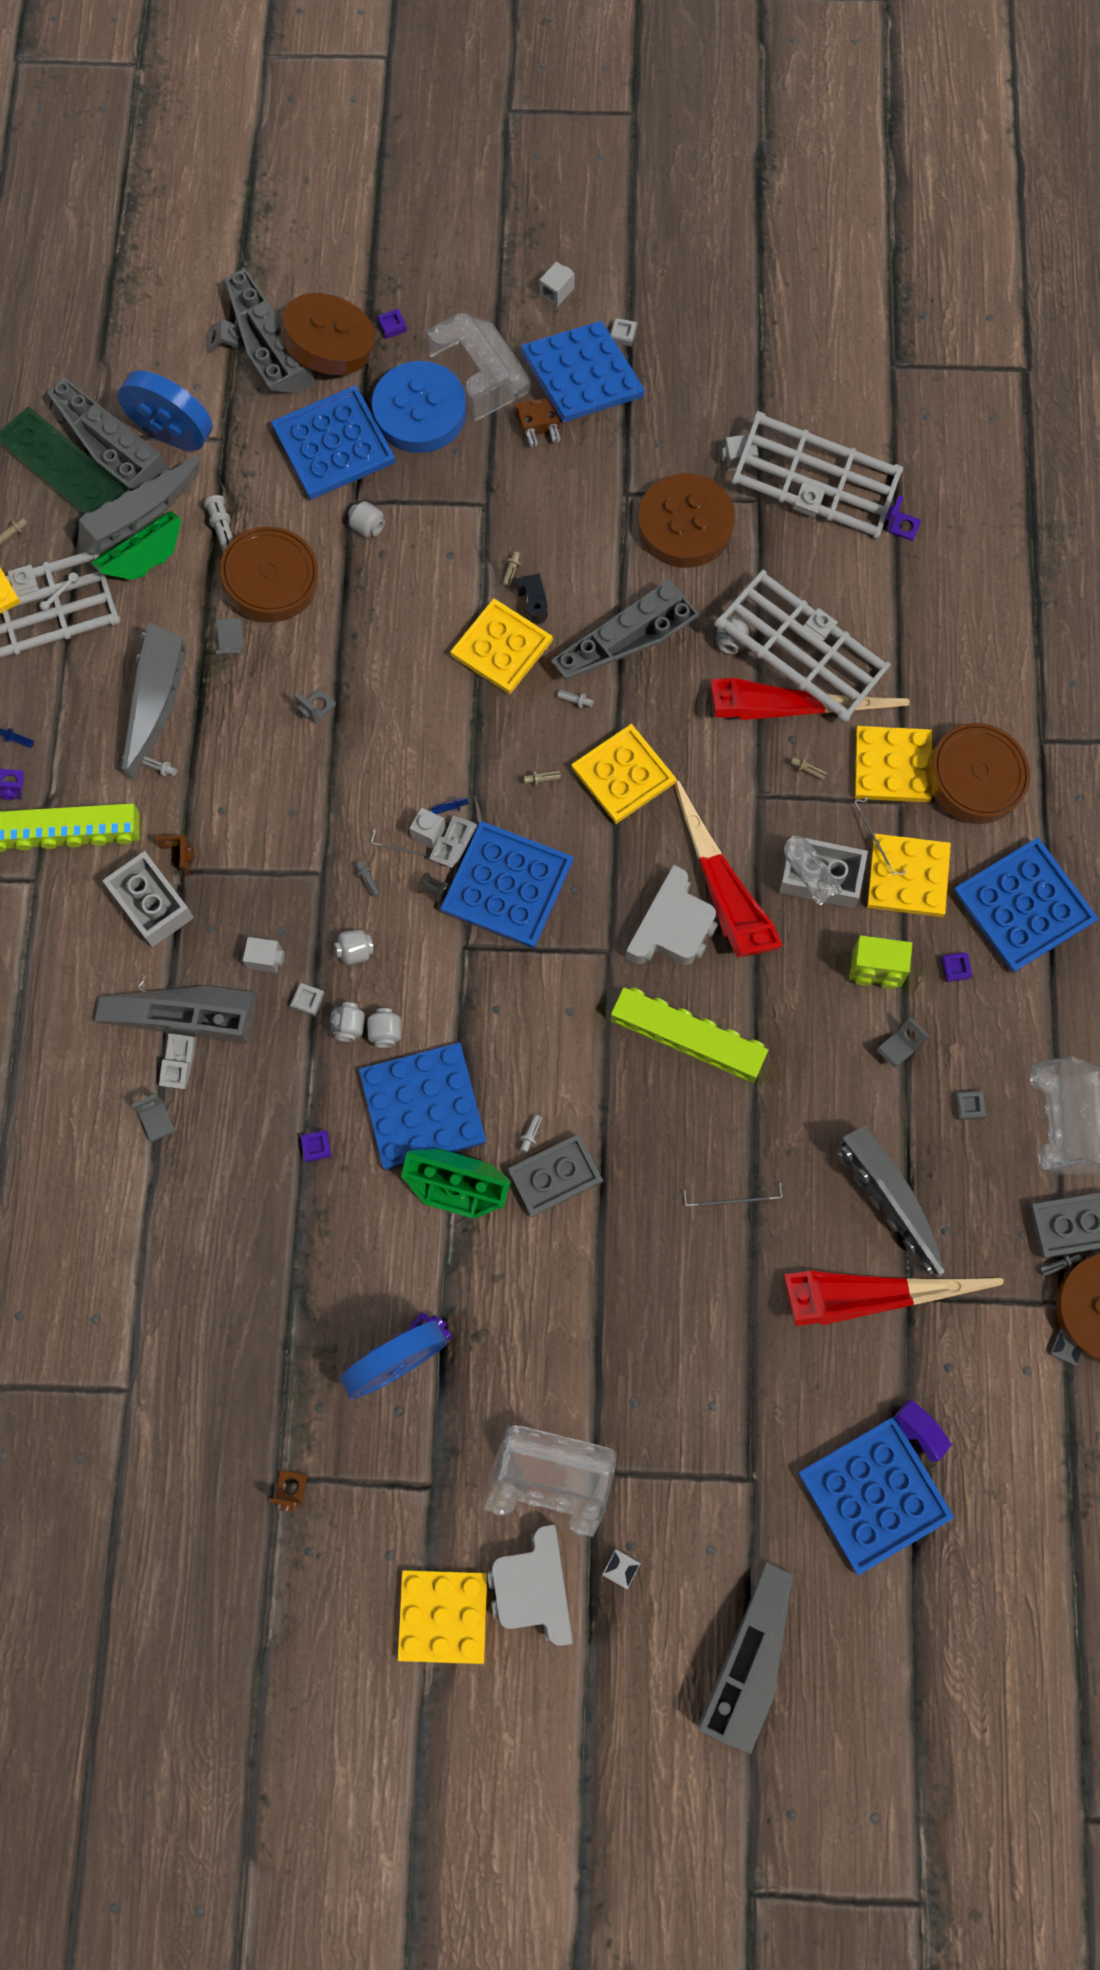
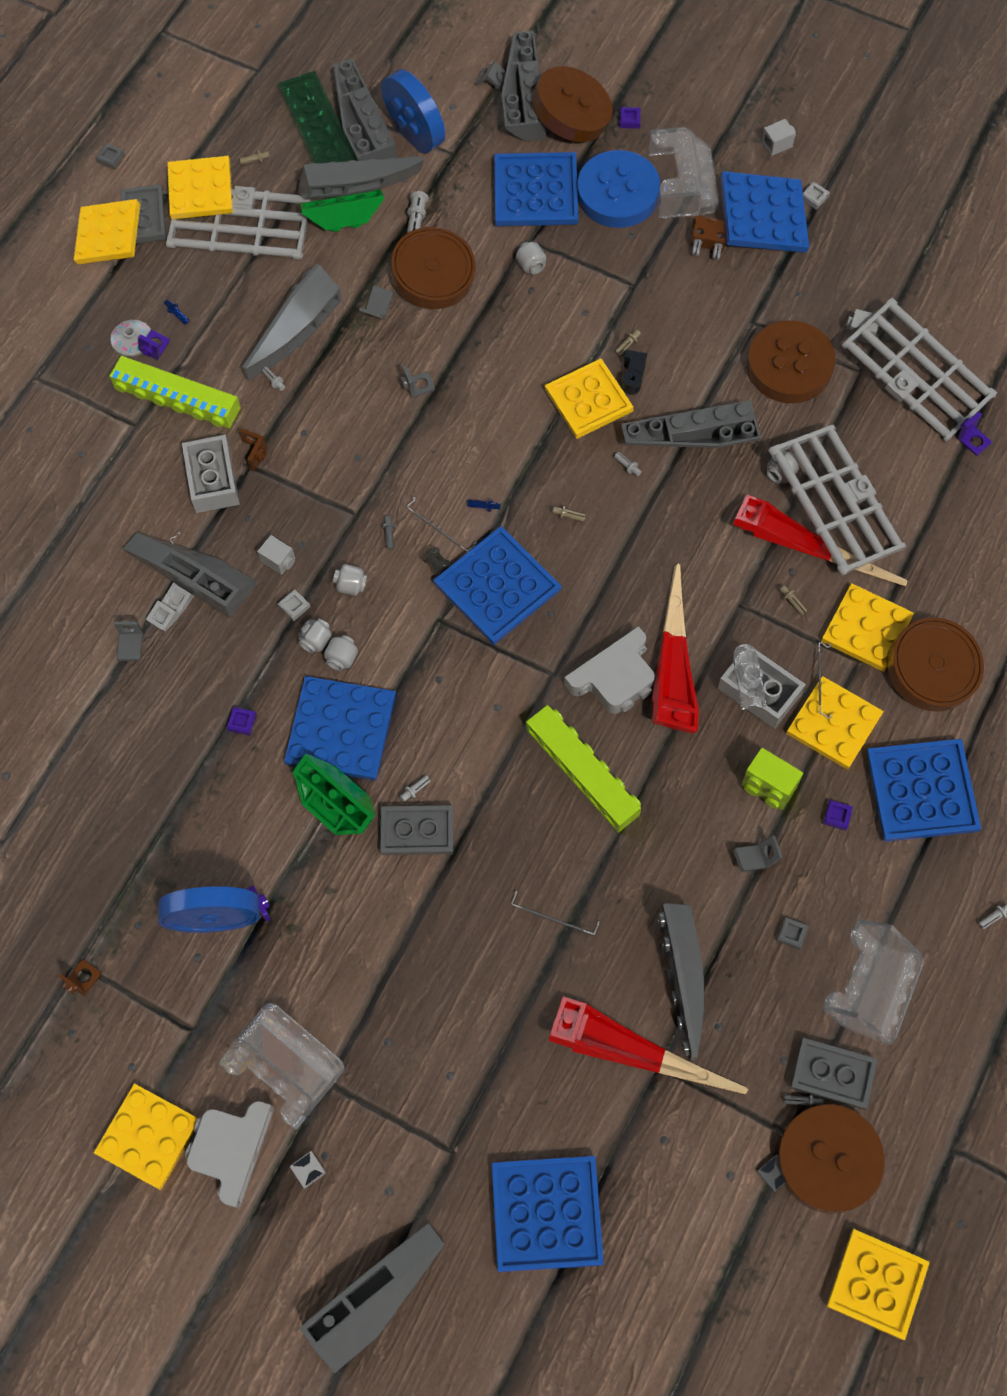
camera: 25 degrees right, 5 degrees down
(73, 578) = (281, 211): light grey hinge -> none
(427, 828) = (455, 513): light grey brick -> none
(454, 843) = (467, 537): light grey slope -> none
(623, 773) = (636, 539): yellow plate -> none
(921, 1426) = (613, 1174): dark purple slope -> none

